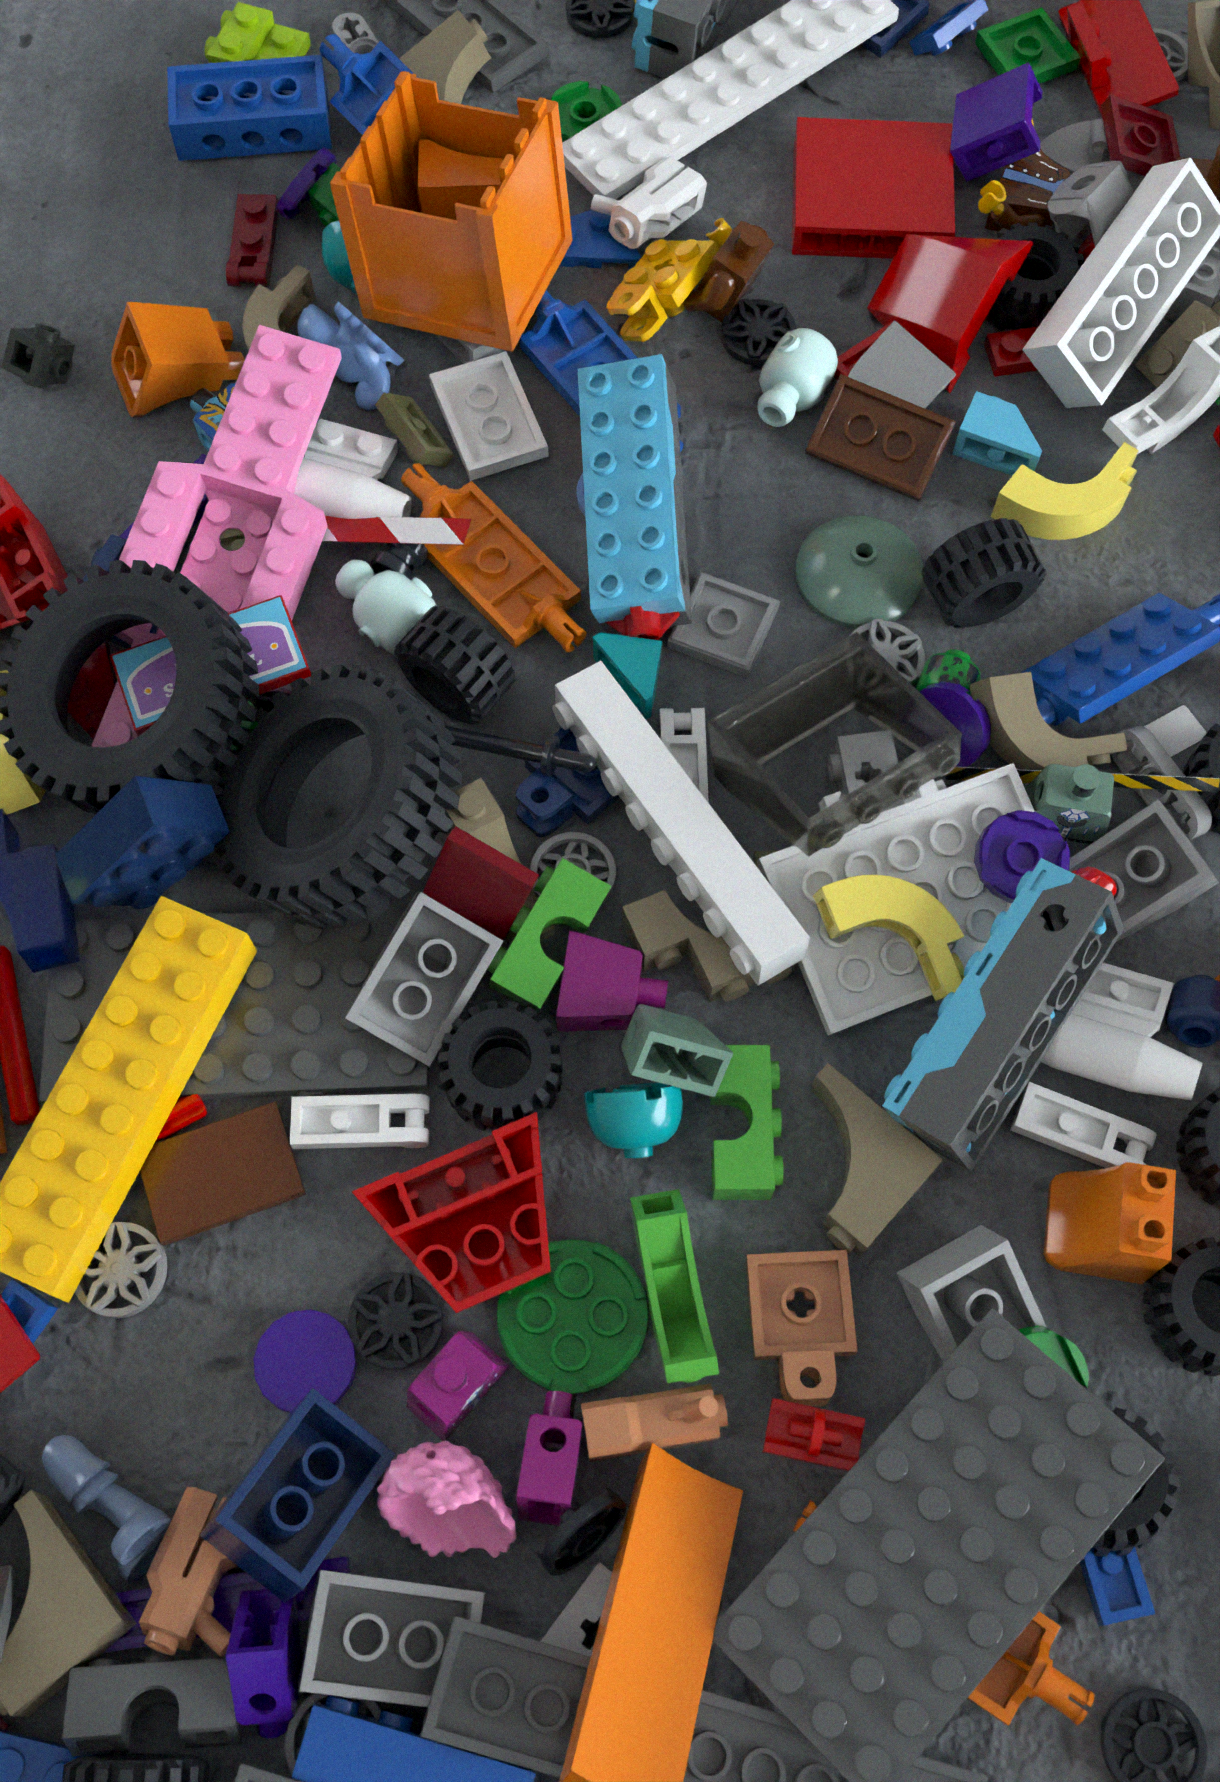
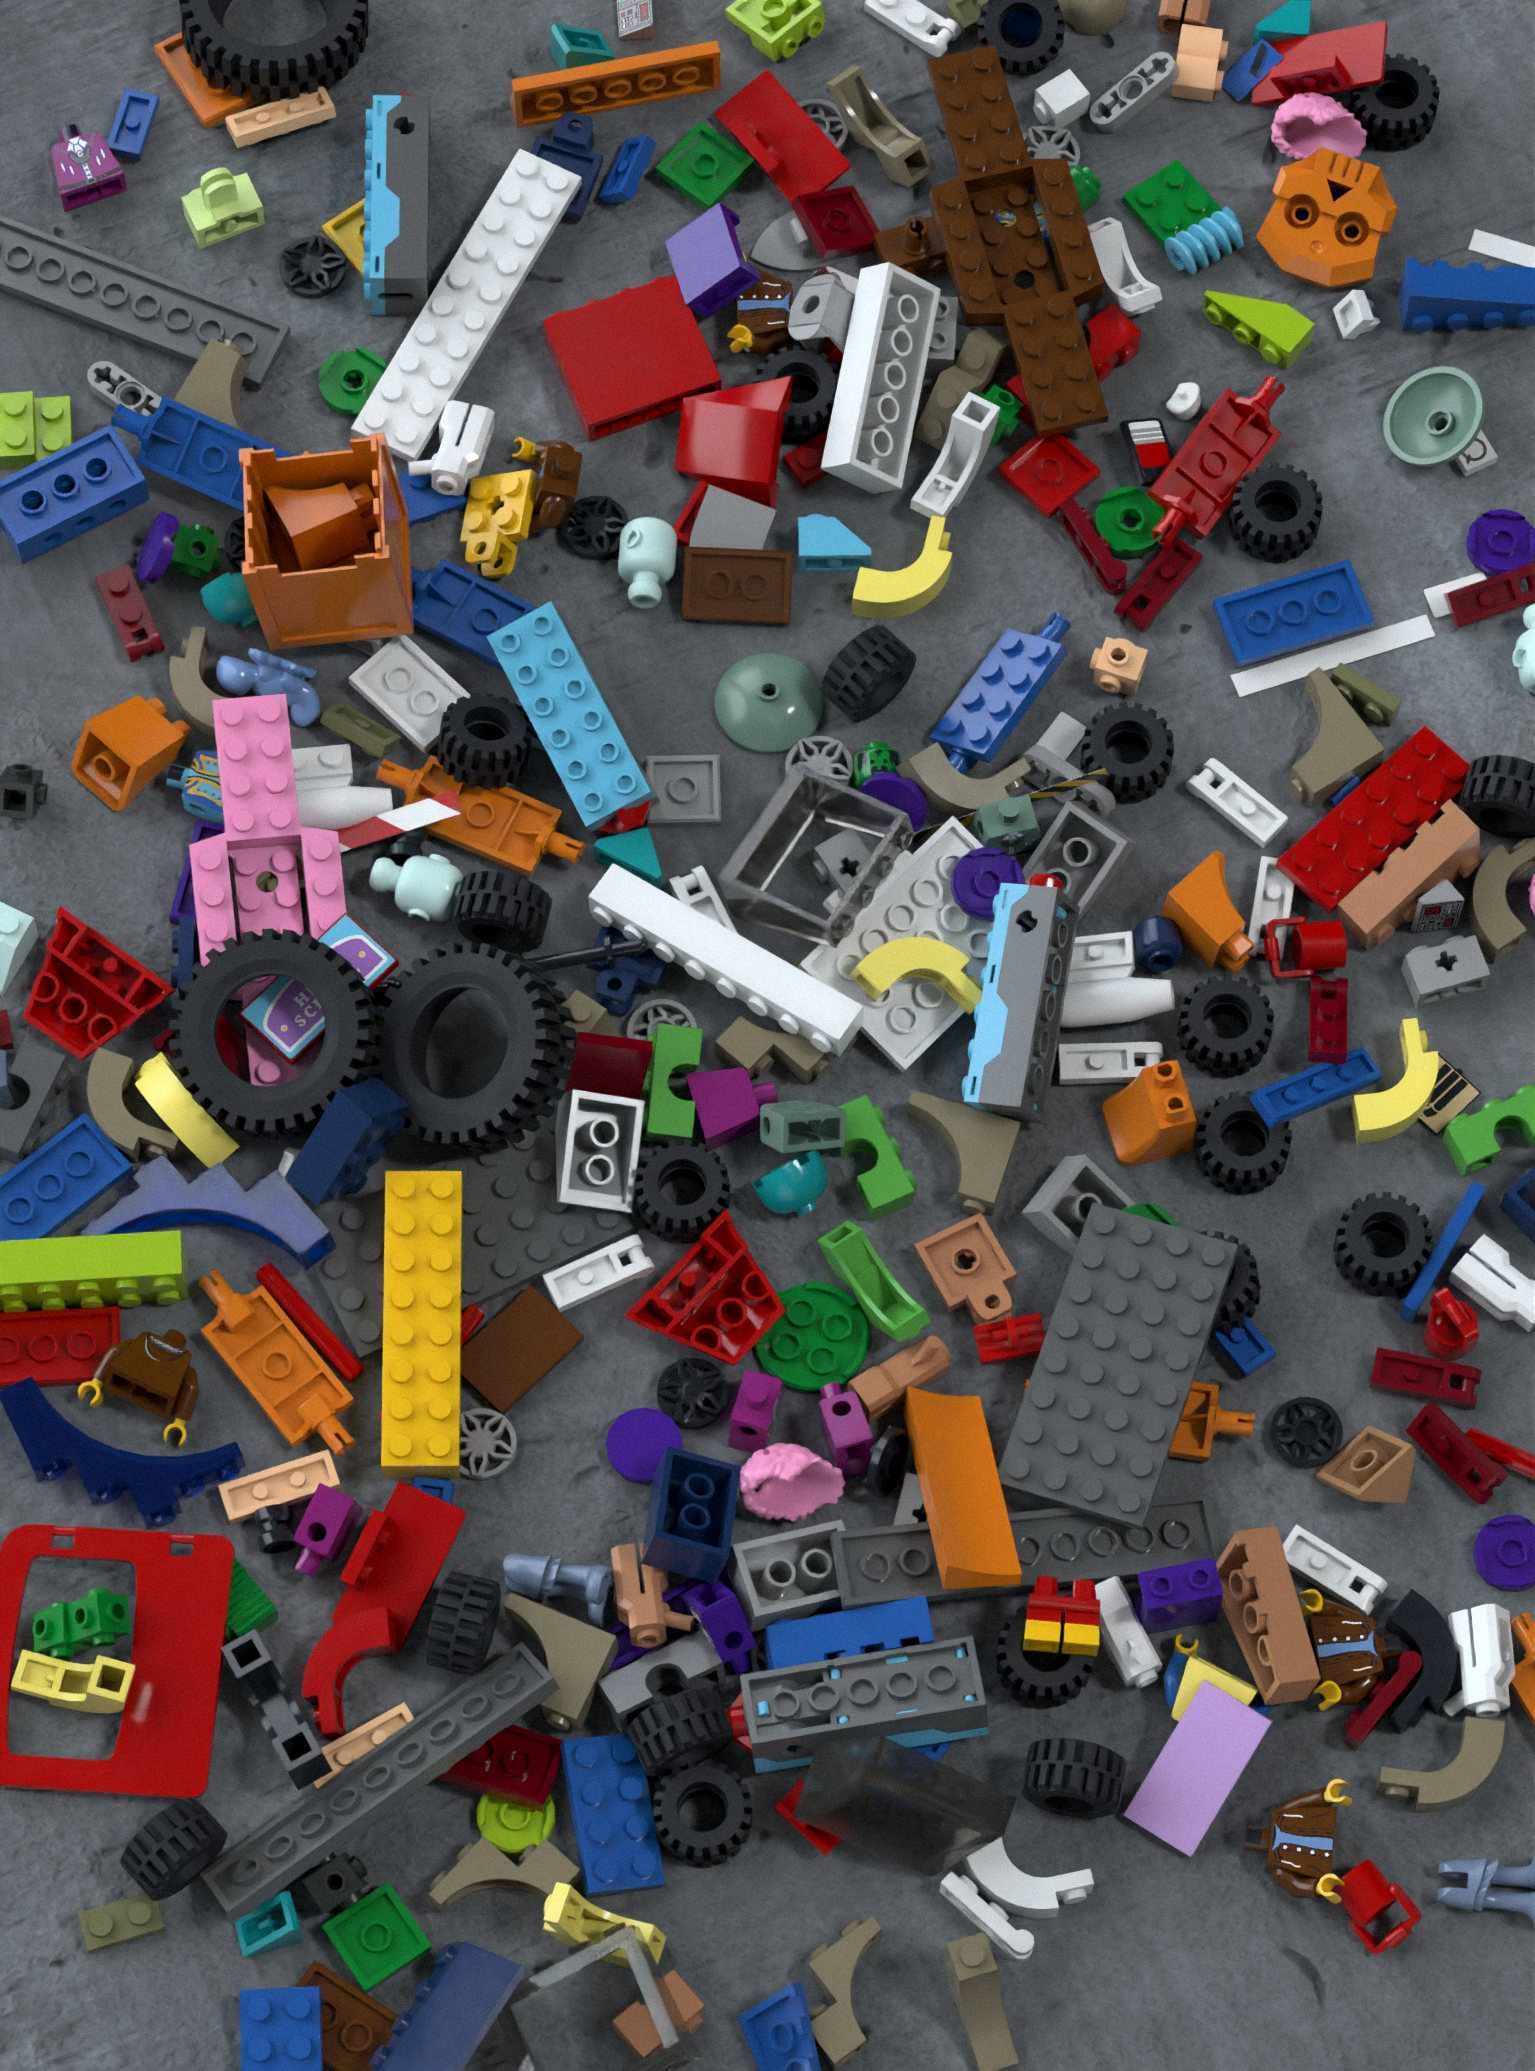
camera: 25 degrees left, 0 degrees up
(530, 485) = (484, 741): none -> black tyre

